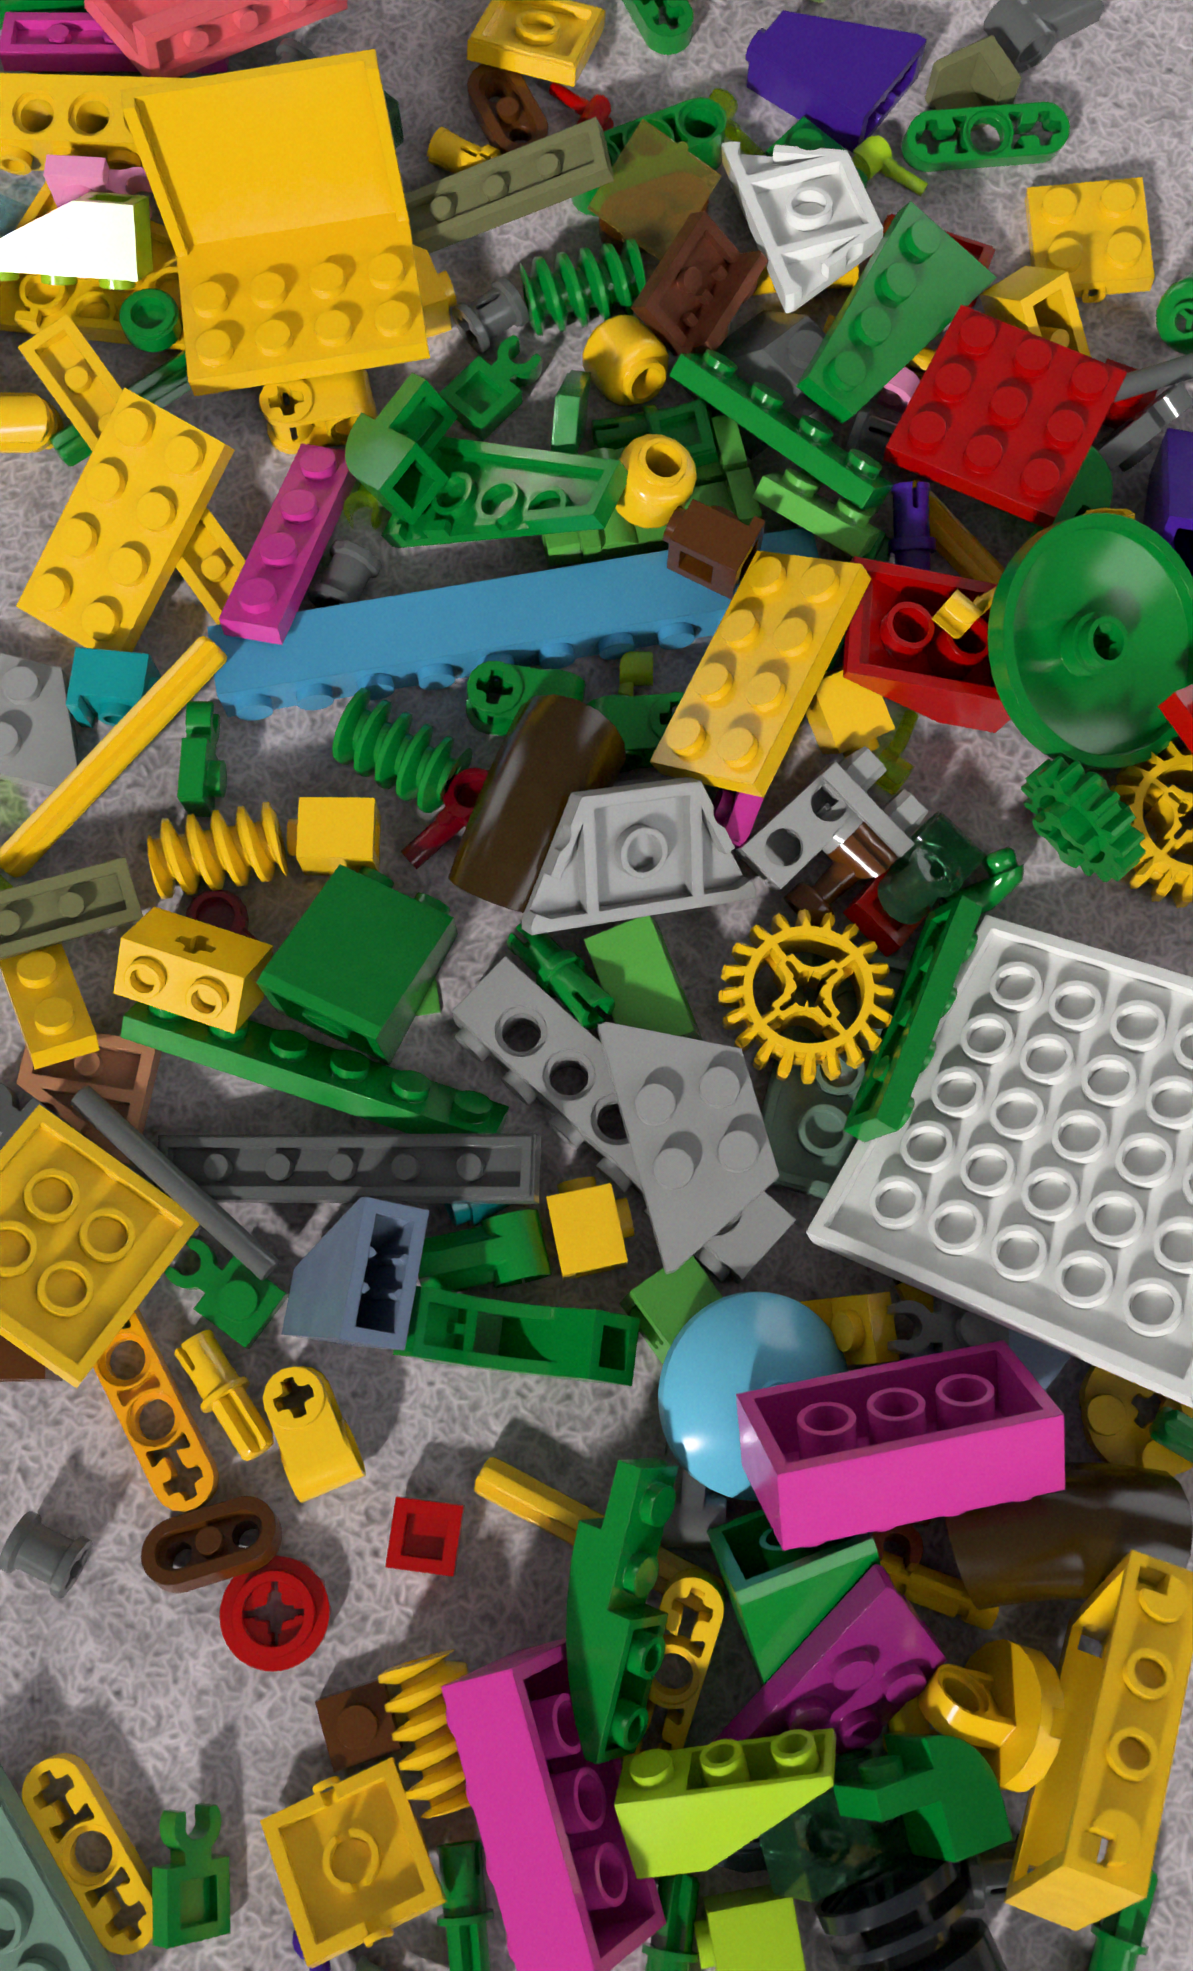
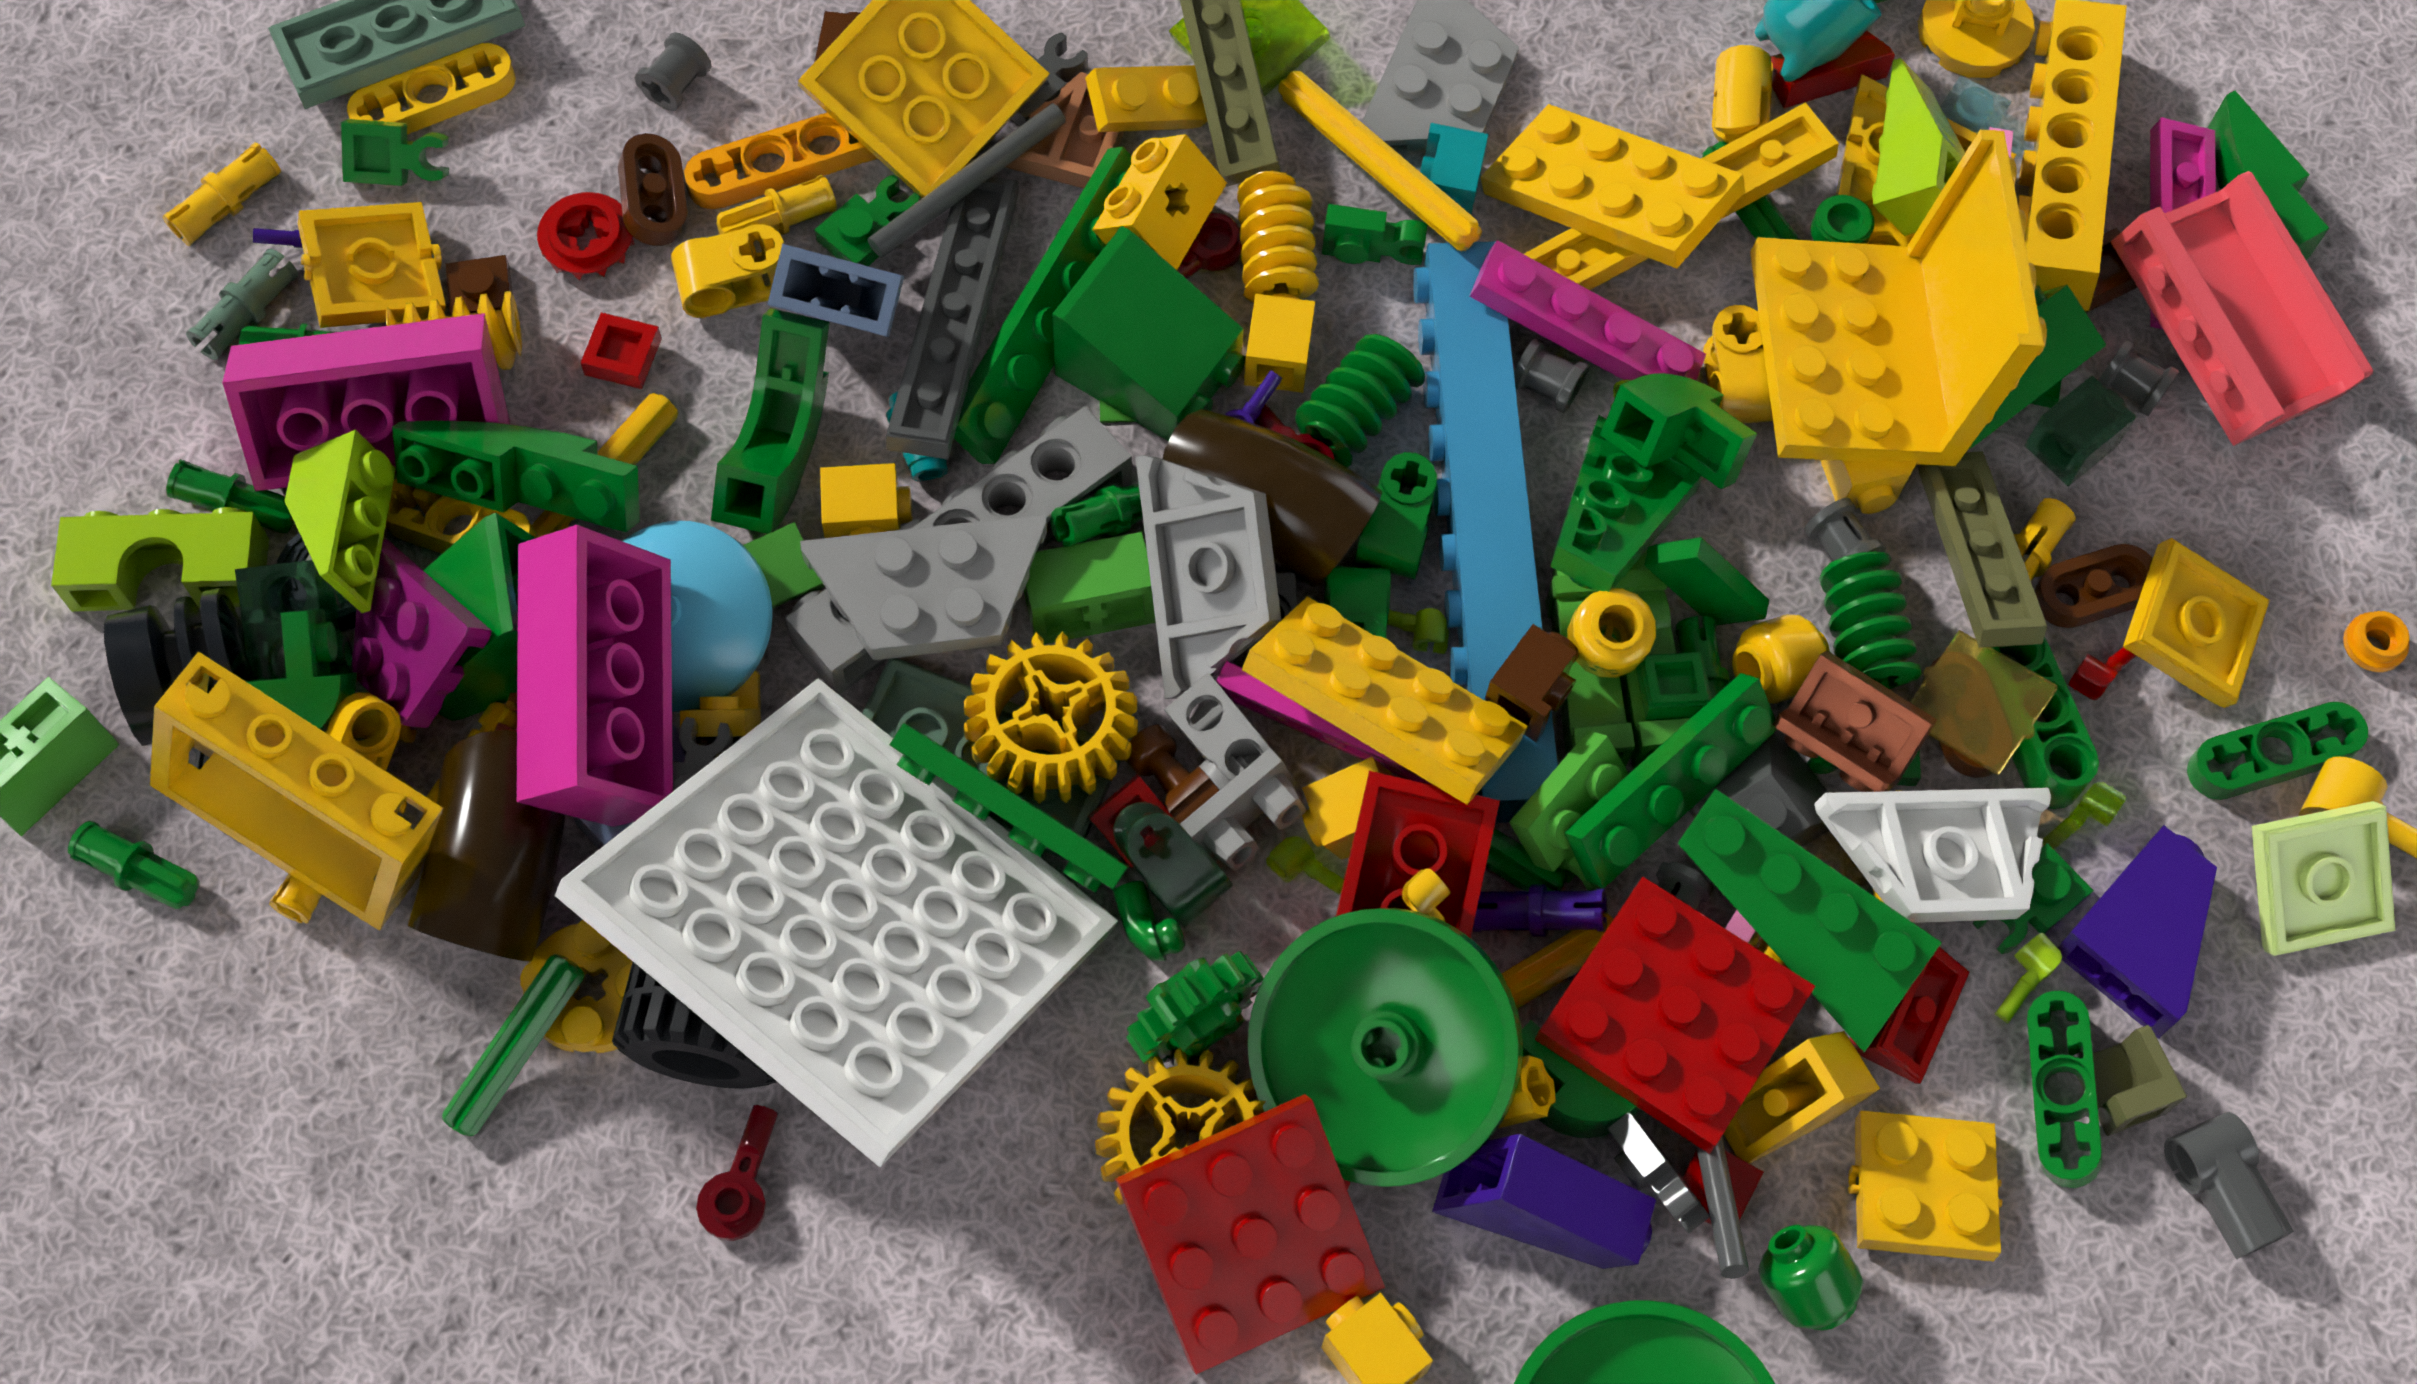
camera: 95 degrees right, 10 degrees down
(421, 855) = (1253, 408): none -> dark purple hand
(490, 393) = (1755, 524): green plate -> none
(494, 1253) = (856, 414): green piece -> none

